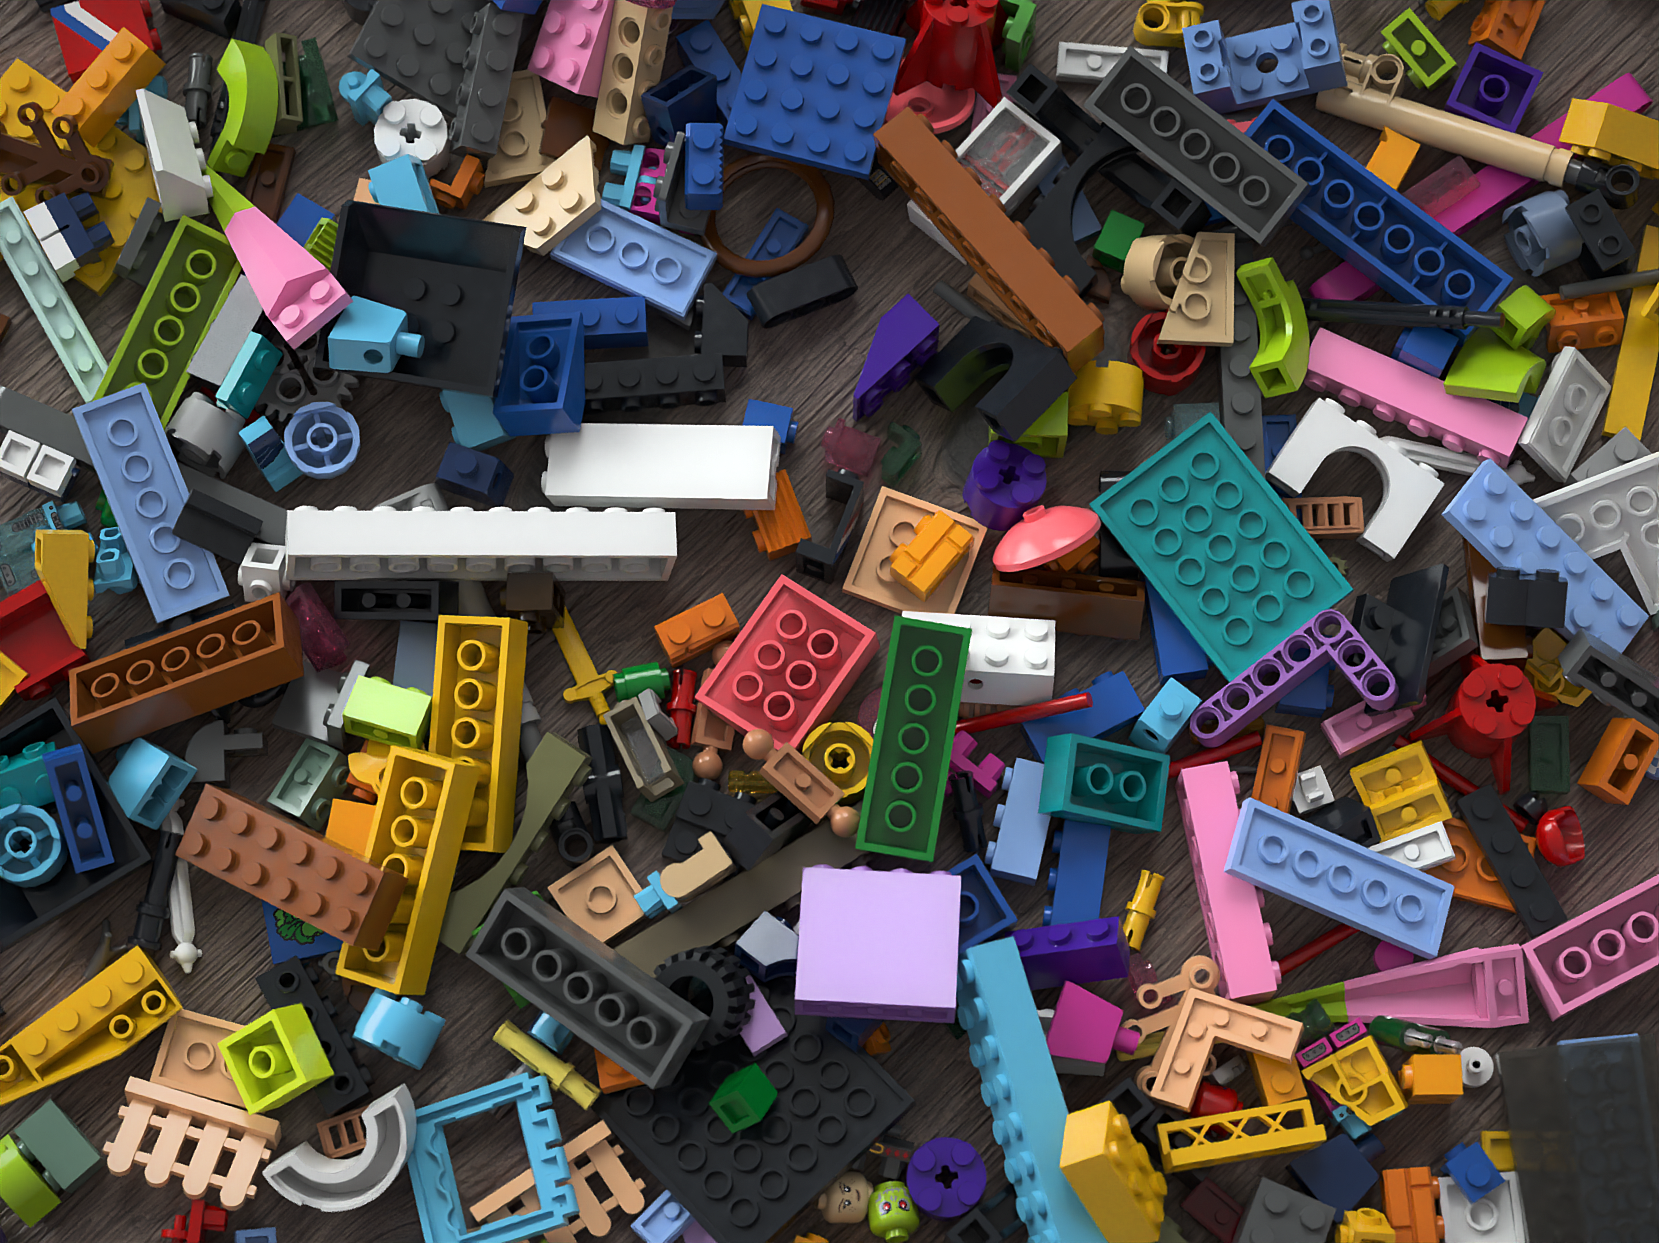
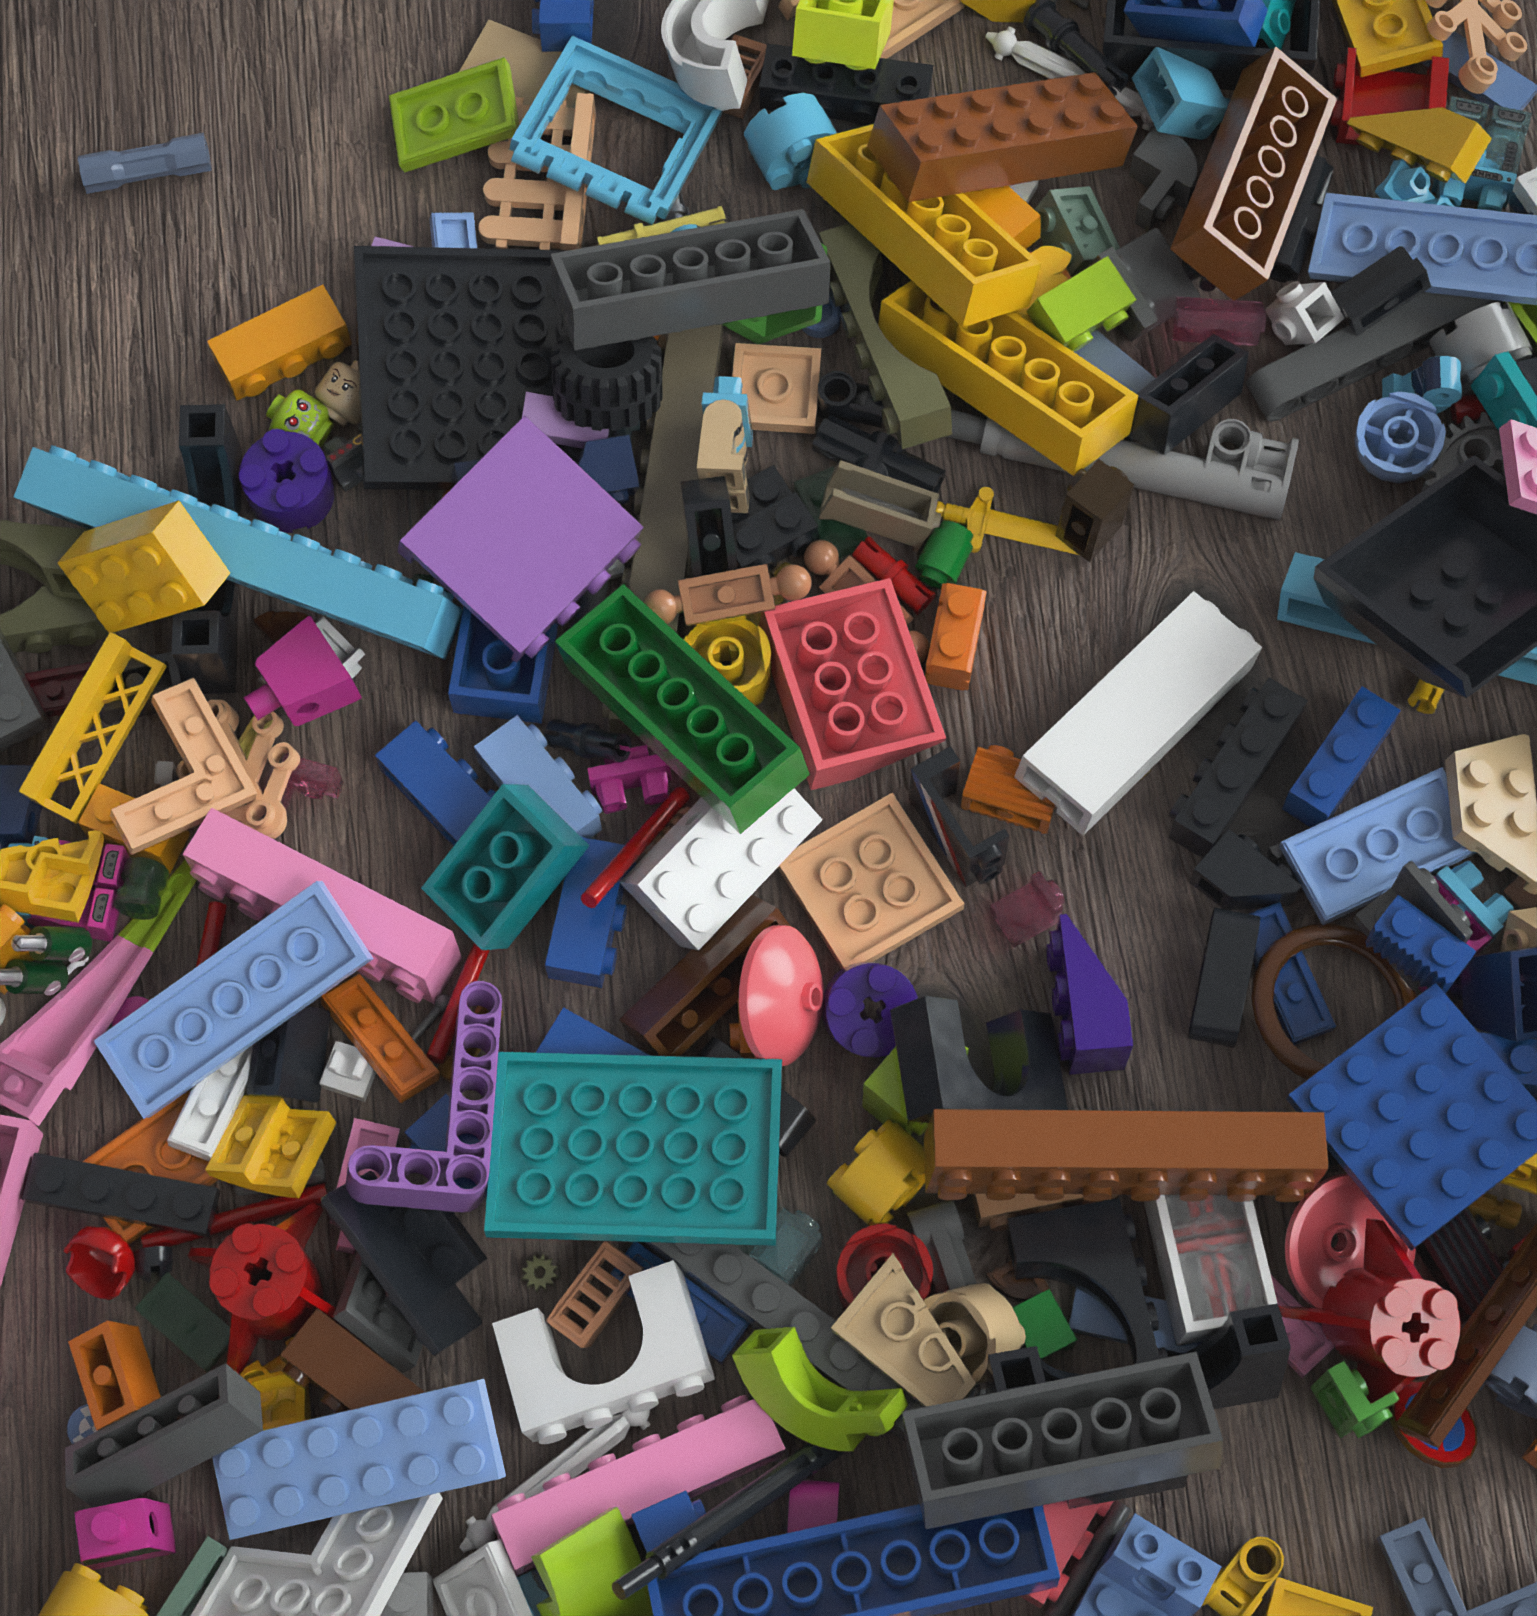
camera: 130 degrees right, 5 degrees down
(371, 338) = (1463, 512): medium azure torso -> none
(473, 474) = (1267, 544): dark blue torso -> none
(479, 544) = (1180, 481): white brick -> none
(542, 375) = (1314, 659): blue slope -> none
(654, 715) = (902, 536): light grey tile -> none
(743, 1098) = (491, 351): green panel -> none
(778, 416) = (1108, 846): blue brick -> none
(899, 460) = (978, 942): clear green bracket -> none
(930, 555) = (855, 884): light orange brick -> none
(1073, 952) = (382, 716): dark purple brick -> none
(1093, 62) = (1243, 1487): white tile -> none
(1119, 331) = (943, 1235): none -> dark grey piece
(1142, 908) = (372, 828): yellow pin -> none
(1165, 717) = (524, 988): medium azure torso -> none
(1212, 1101) = (143, 748): red head -> none
(1526, 599) = (331, 1390): black brick -> none

